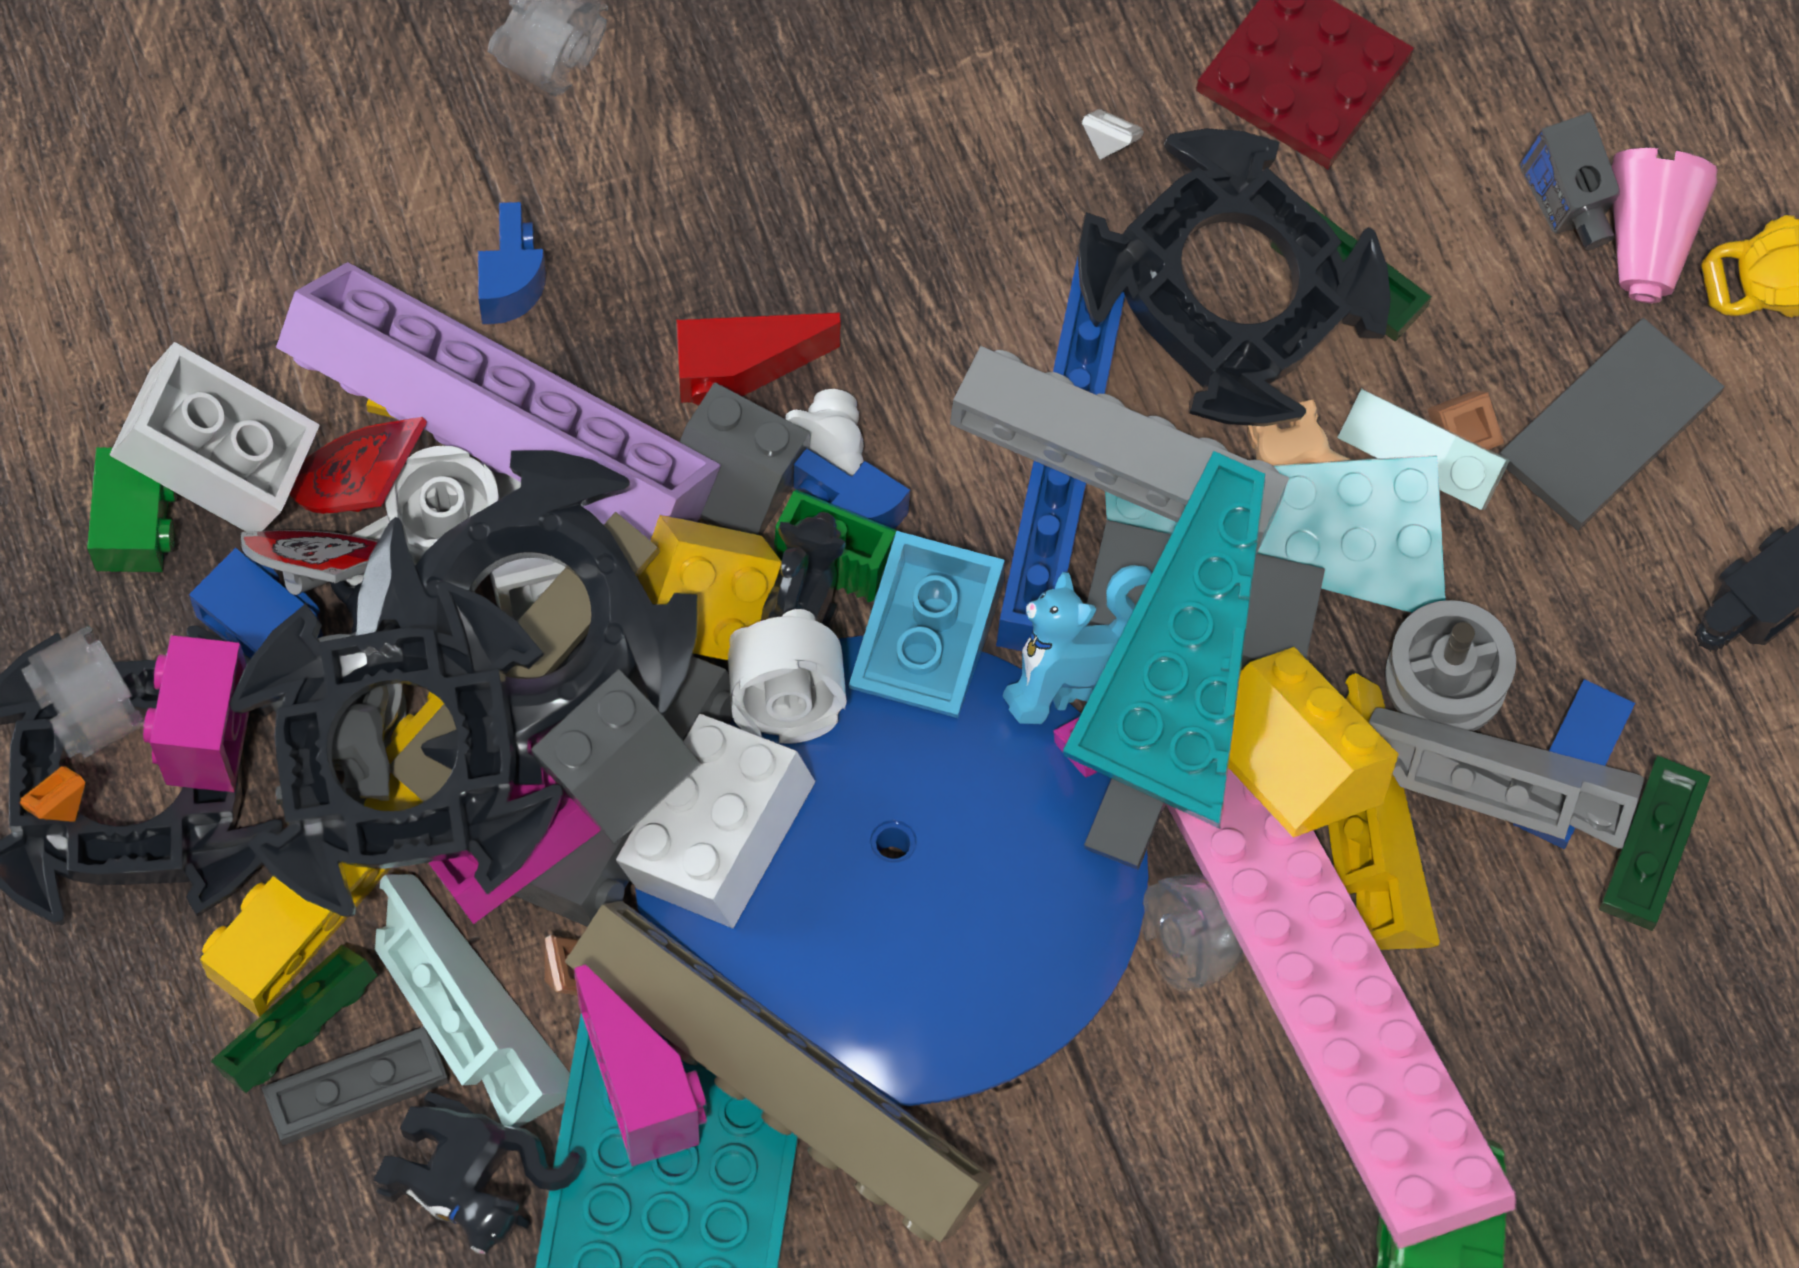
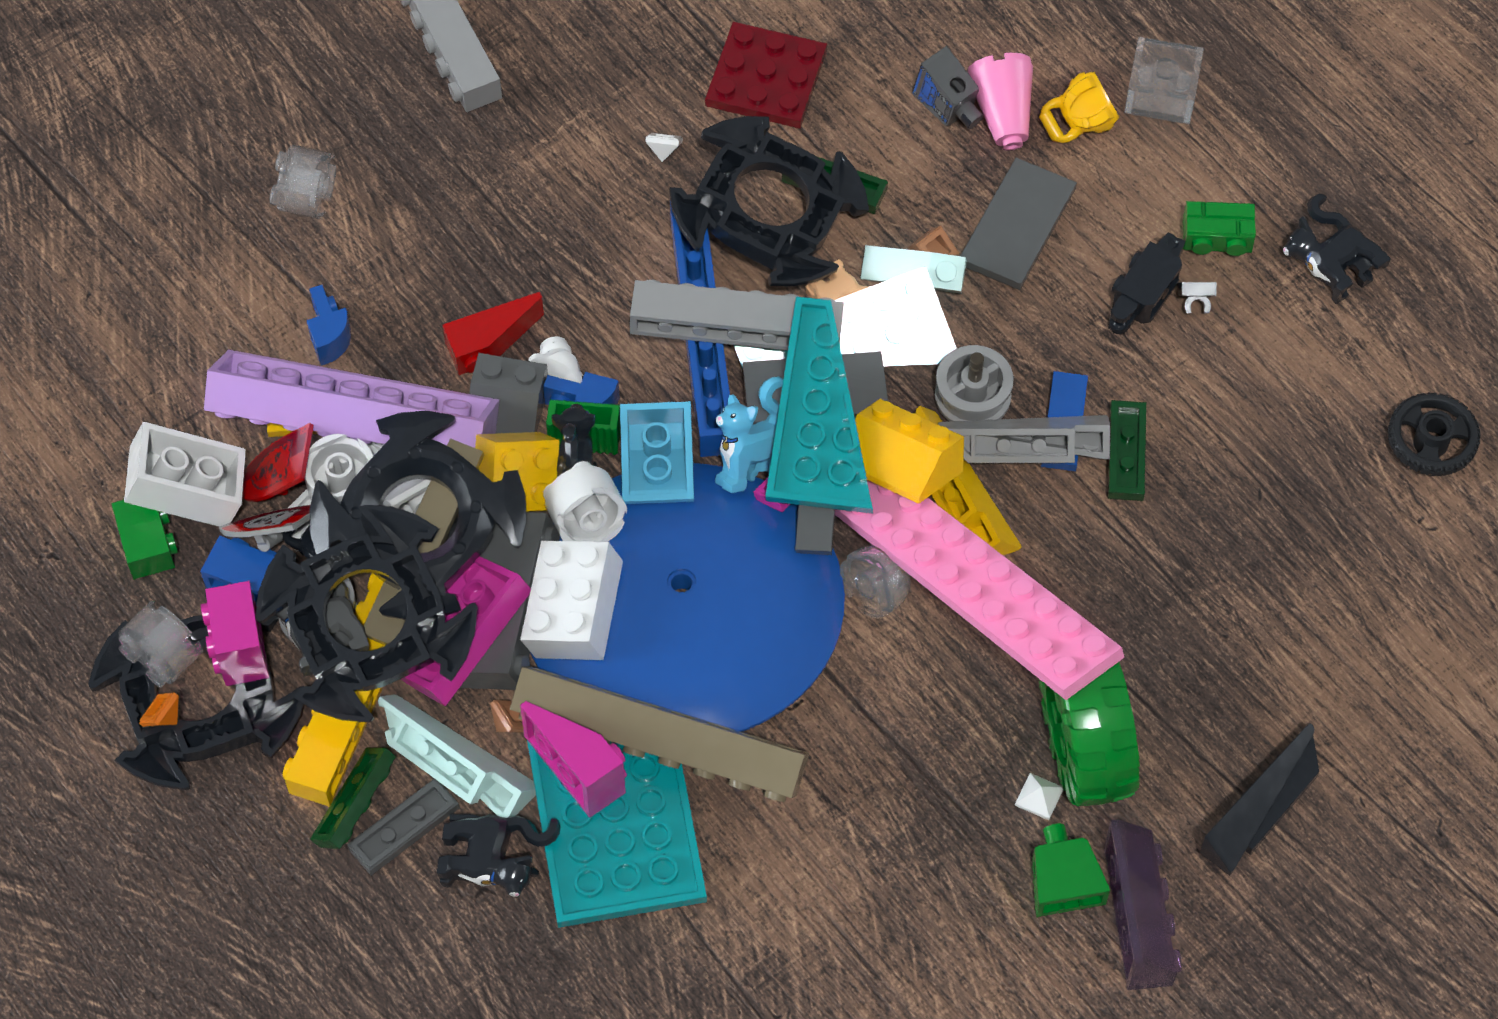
camera: 15 degrees left, 5 degrees down
(615, 756) = (502, 575): dark grey slope -> none

